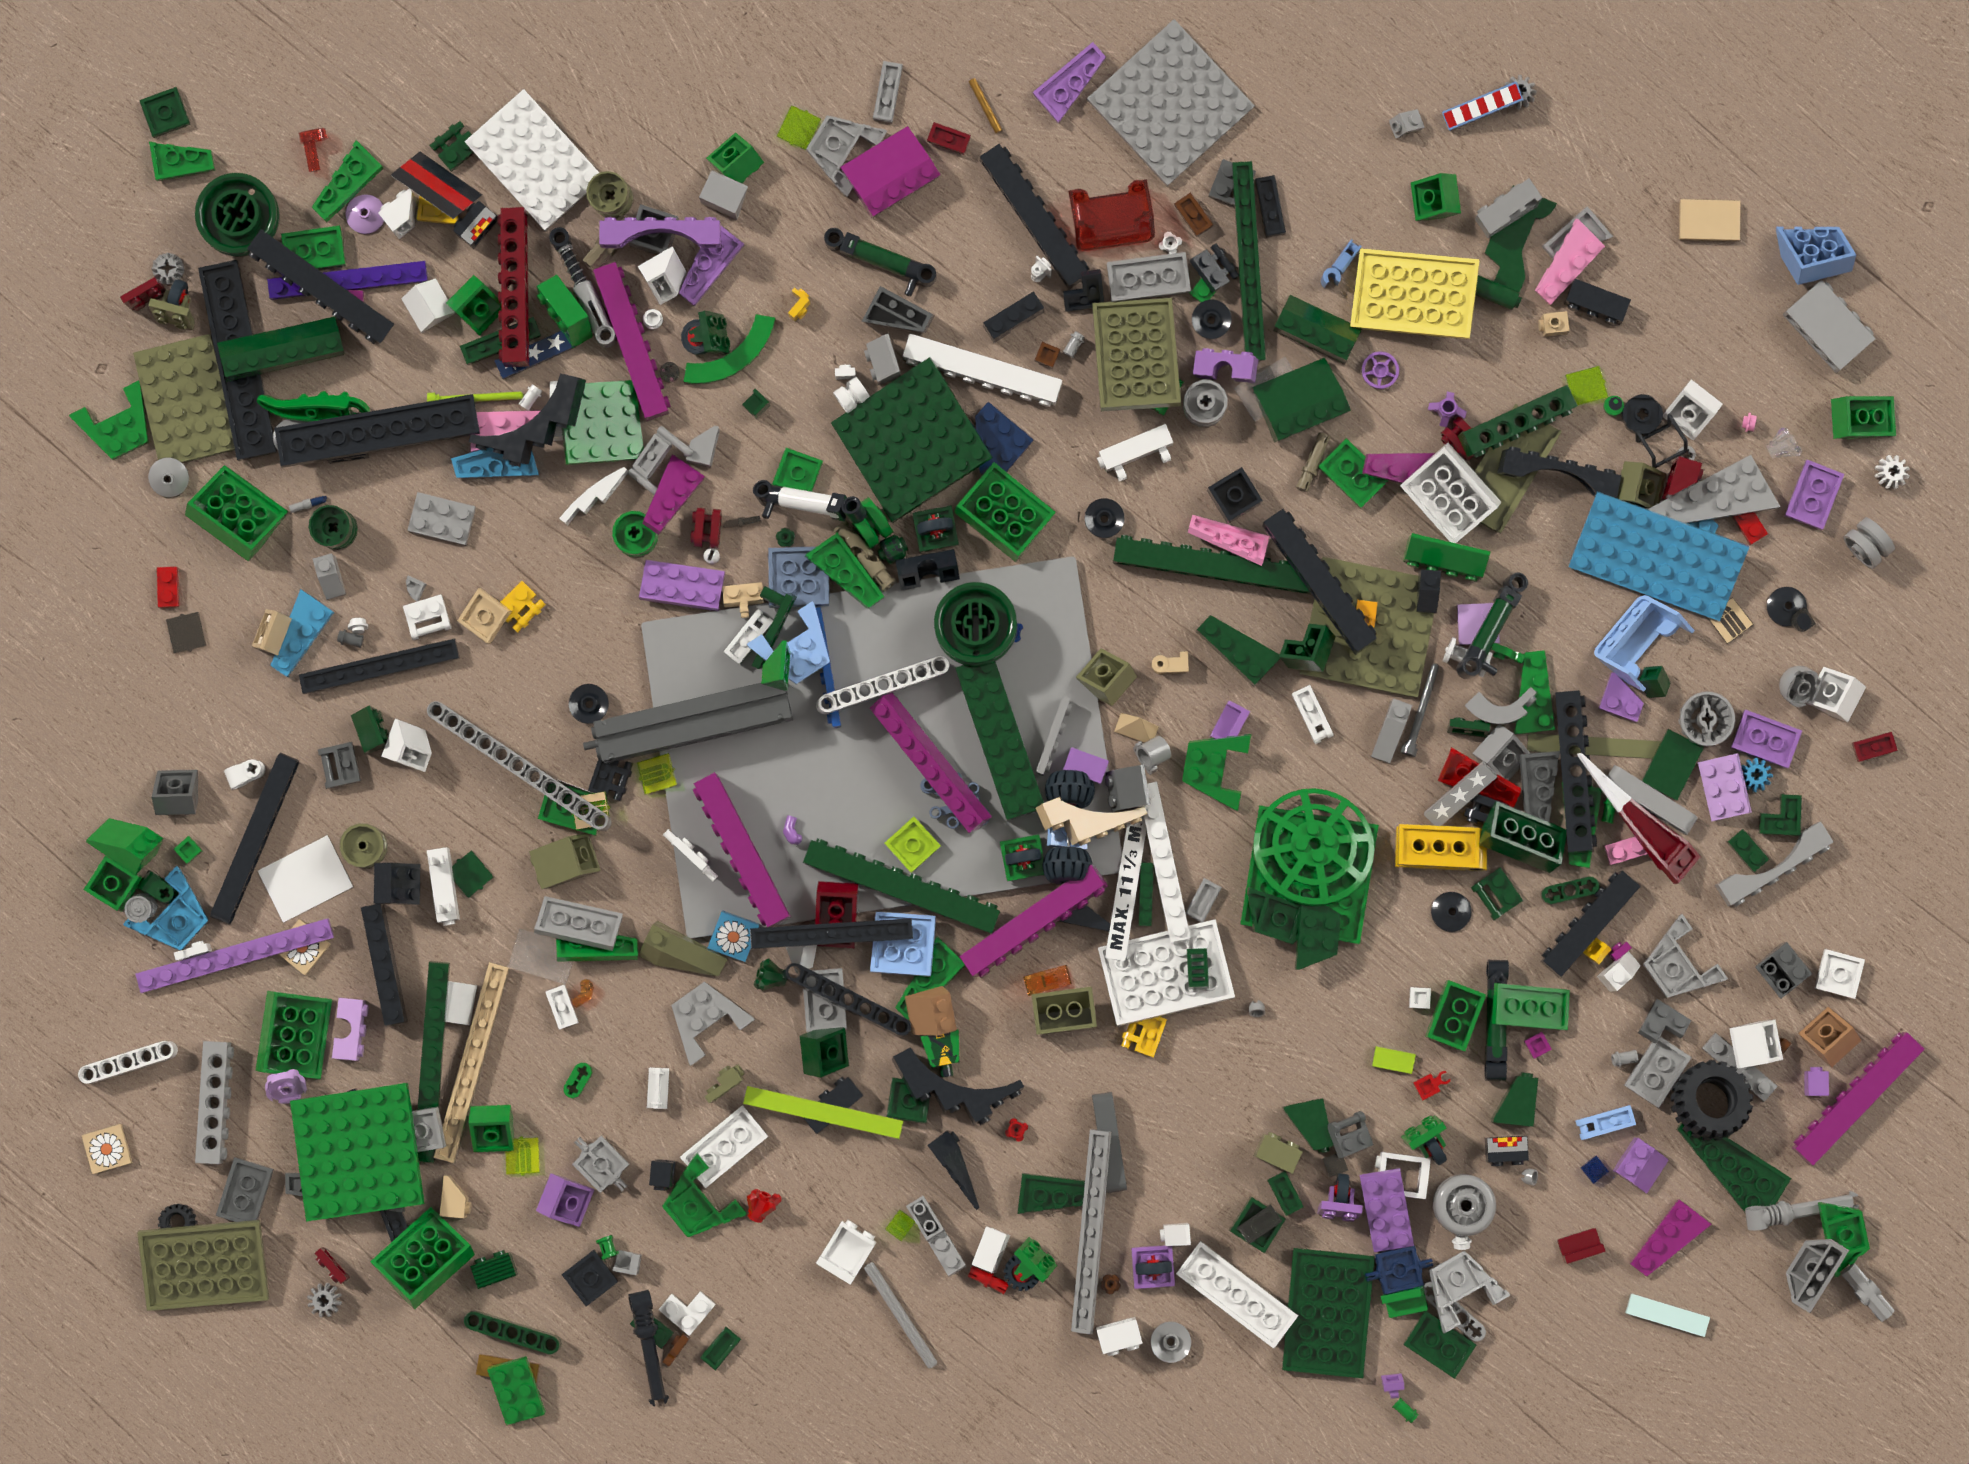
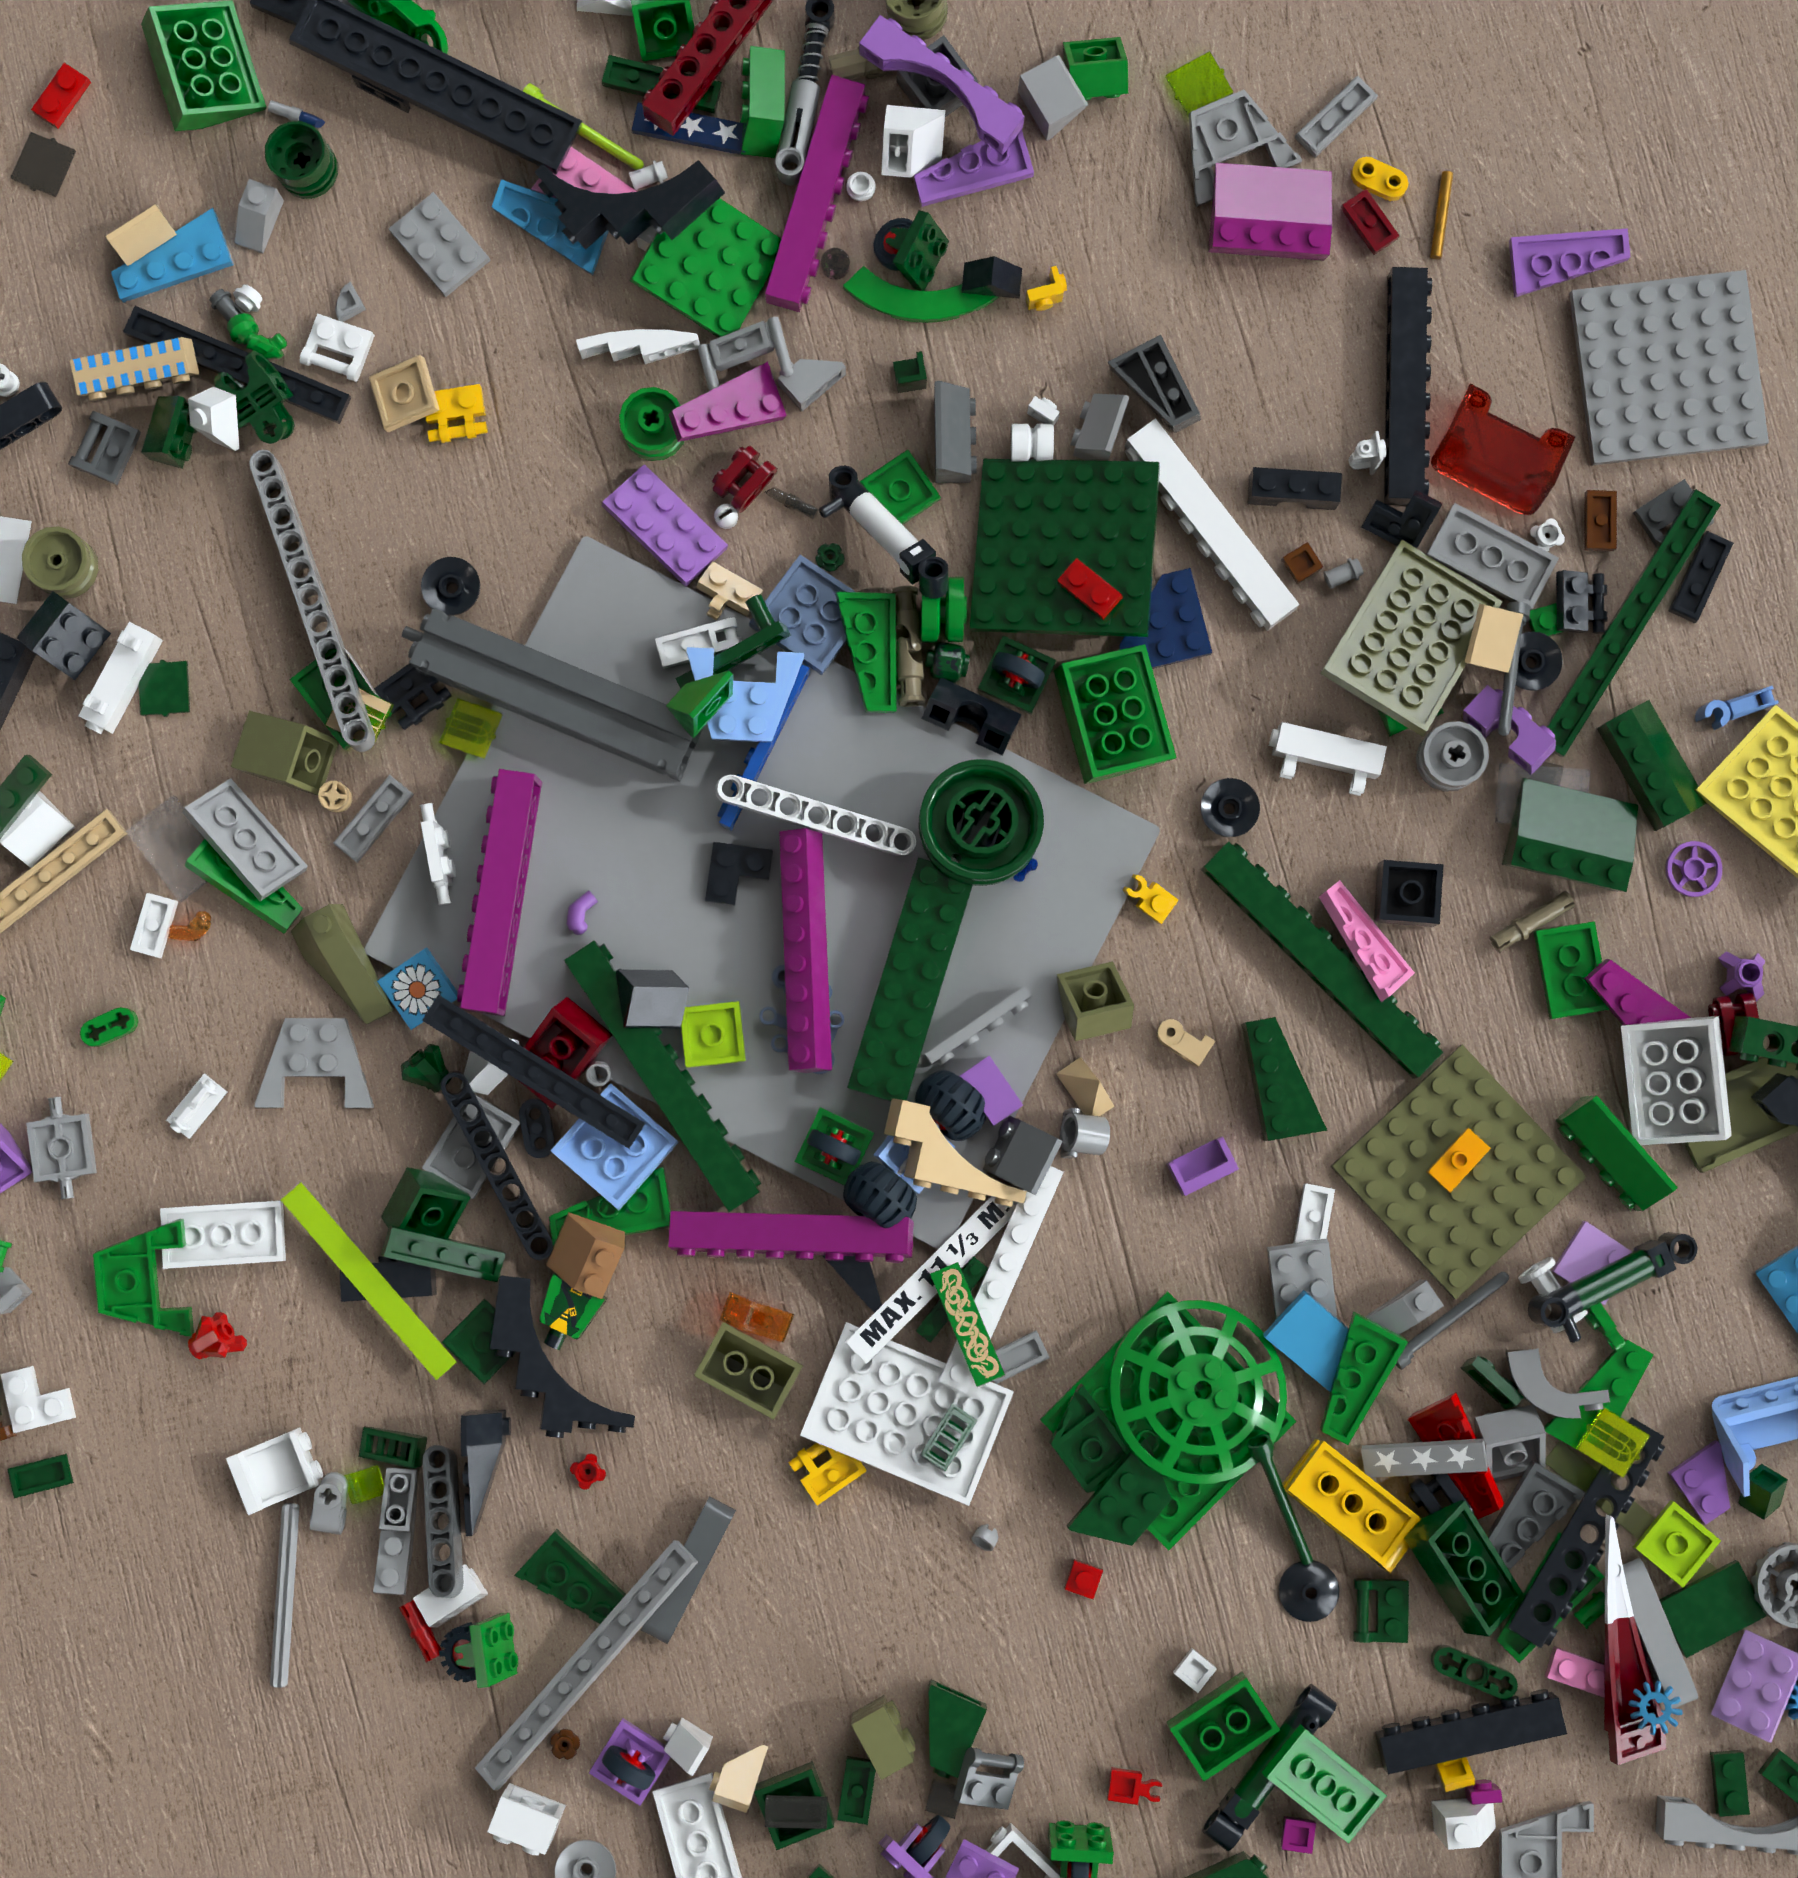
camera: 30 degrees right, 0 degrees up
(325, 708) = (134, 367): none -> tan brick
(369, 644) = (245, 331): none -> green arm
(392, 703) = (215, 416): none -> white slope
(408, 746) = (198, 481): white slope -> none
(414, 684) = (267, 411): none -> dark green piece
(606, 865) = (328, 795): none -> tan wheel
(639, 862) = (373, 818): none -> light grey tile
(662, 1174) = (119, 1215): black arch -> none
(728, 1079) = (283, 1157): olive plate -> none
(763, 319) = (992, 278): none -> black slope
(805, 421) = (953, 433): none -> dark grey slope
(853, 965) = (537, 1128): none -> black plate
(853, 1068) = (443, 1253): none -> dark green plate
(854, 744) = (729, 863): none -> black plate
(857, 248) = (1162, 269): piece -> none
(861, 912) = (592, 1076): none -> light grey hinge
(865, 848) = (651, 998): none -> slope
(891, 1250) = (330, 1505): none -> light grey piece
(915, 1185) = (410, 1443): none -> dark green slope
(937, 112) = (1378, 180): none -> yellow plate
(942, 454) = (1089, 589): none -> red plate
(949, 1207) = (433, 1510): none -> dark grey beam
(1098, 598) = (1153, 900): none -> yellow plate
(1164, 900) = (967, 1324): none -> tile
(1180, 323) = (1493, 638): none -> tan slope
(1185, 300) = (1510, 678): none -> dark grey piece
(1206, 766) = (1138, 1196): green wing -> none
(1217, 1232) = (738, 1779): none -> tan slope
(1311, 652) = (1369, 1151): dark green brick -> none
(1319, 581) = (1439, 1072): black brick -> none
(1325, 993) = (1083, 1579): none -> red plate
(1330, 750) = (1301, 1268): none -> light grey plate
(1358, 773) = (1310, 1338): none -> dark azure tile
(1369, 852) = (1262, 1449): none -> dark green piece
(1393, 1060) = (1107, 1722): lime tile -> none
(1394, 773) = (1362, 1370): none -> green wing
(1428, 591) = (1564, 1179): black slope -> none
(1554, 713) = (1613, 1442): none -> clear neon green piece
(1628, 743) = (1677, 1543): none -> lime plate
(1676, 845) = (1651, 1717): none -> dark azure gear

